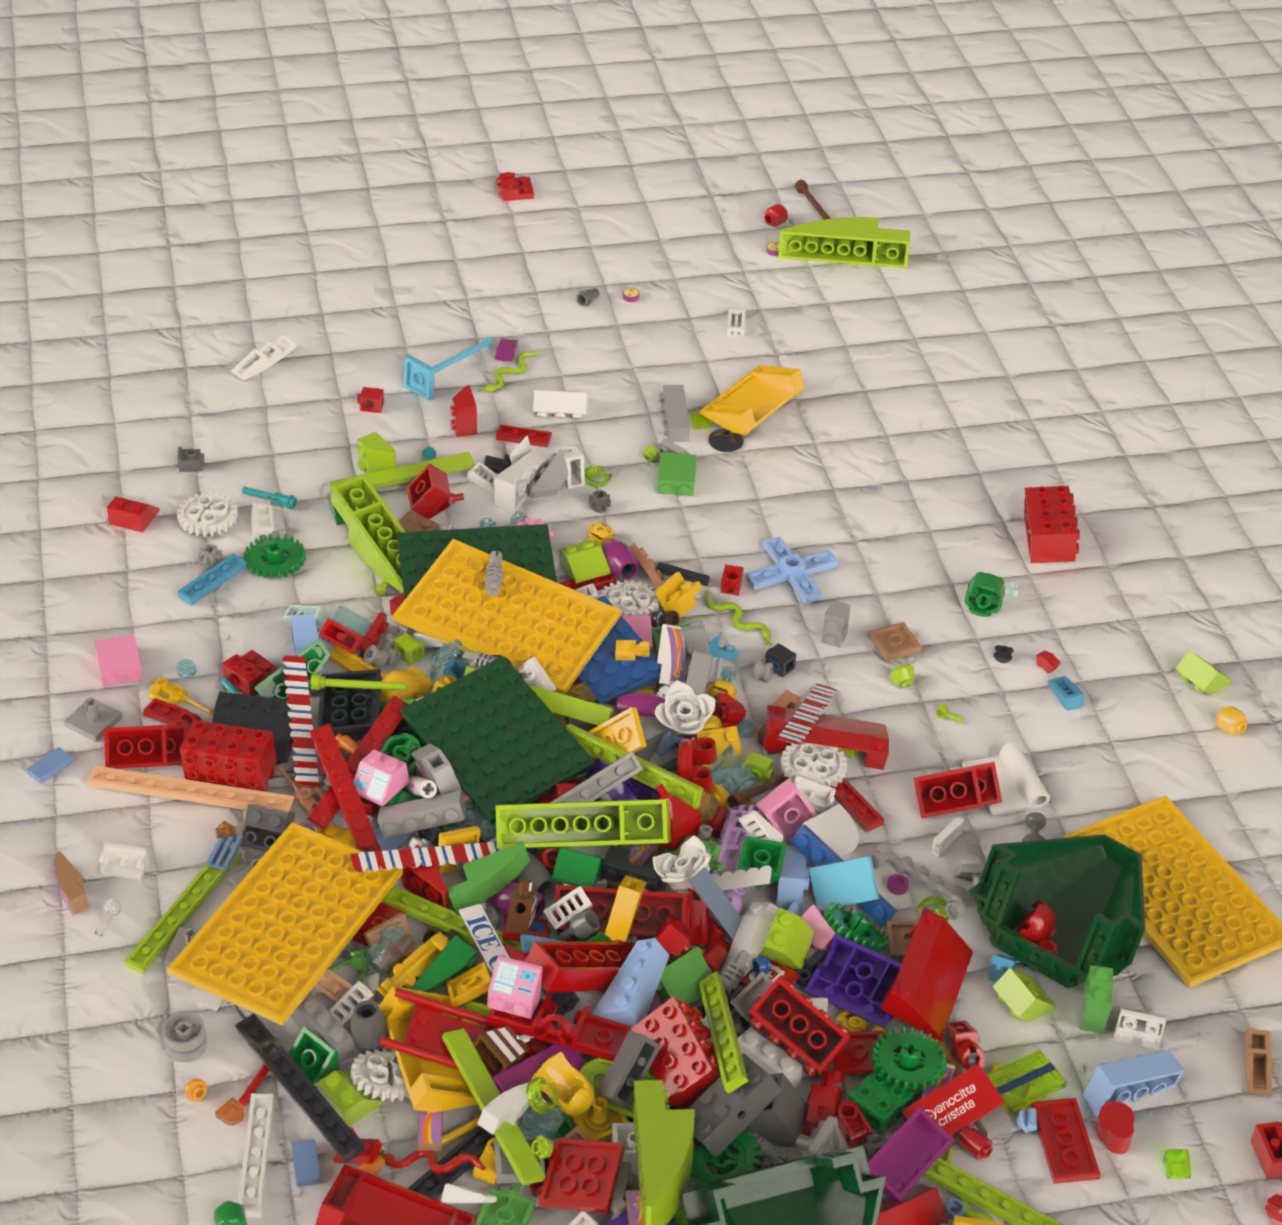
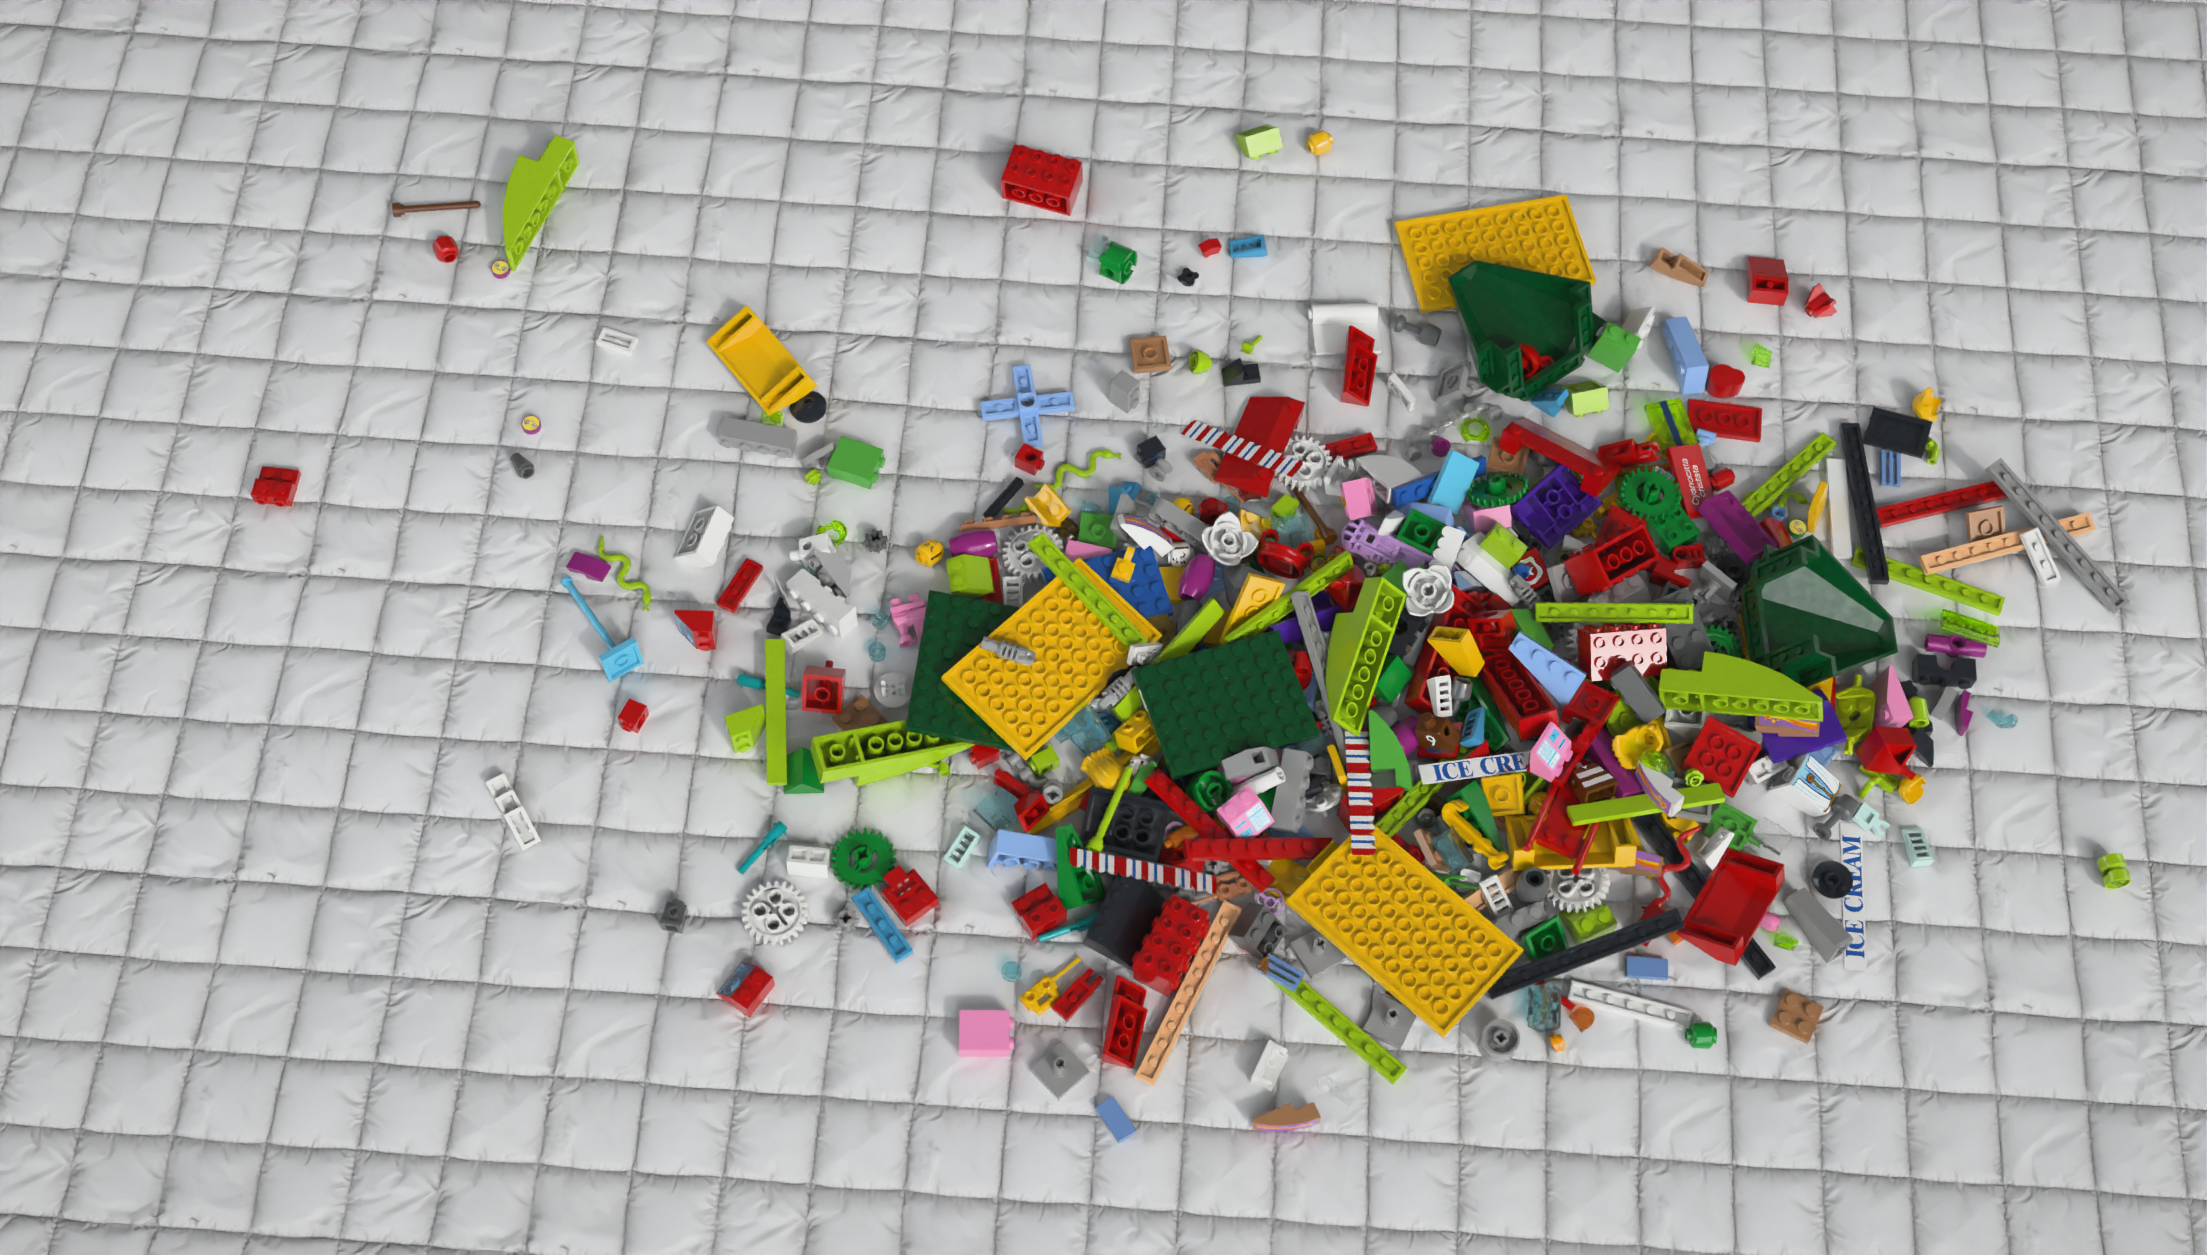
camera: 75 degrees left, 20 degrees up
(230, 1067) = (1544, 1007): none -> clear light blue brick
(245, 588) = (907, 895): none -> red piece
(584, 620) = (1086, 591): none -> lime tile
(908, 713) = (1240, 374): none -> black slope

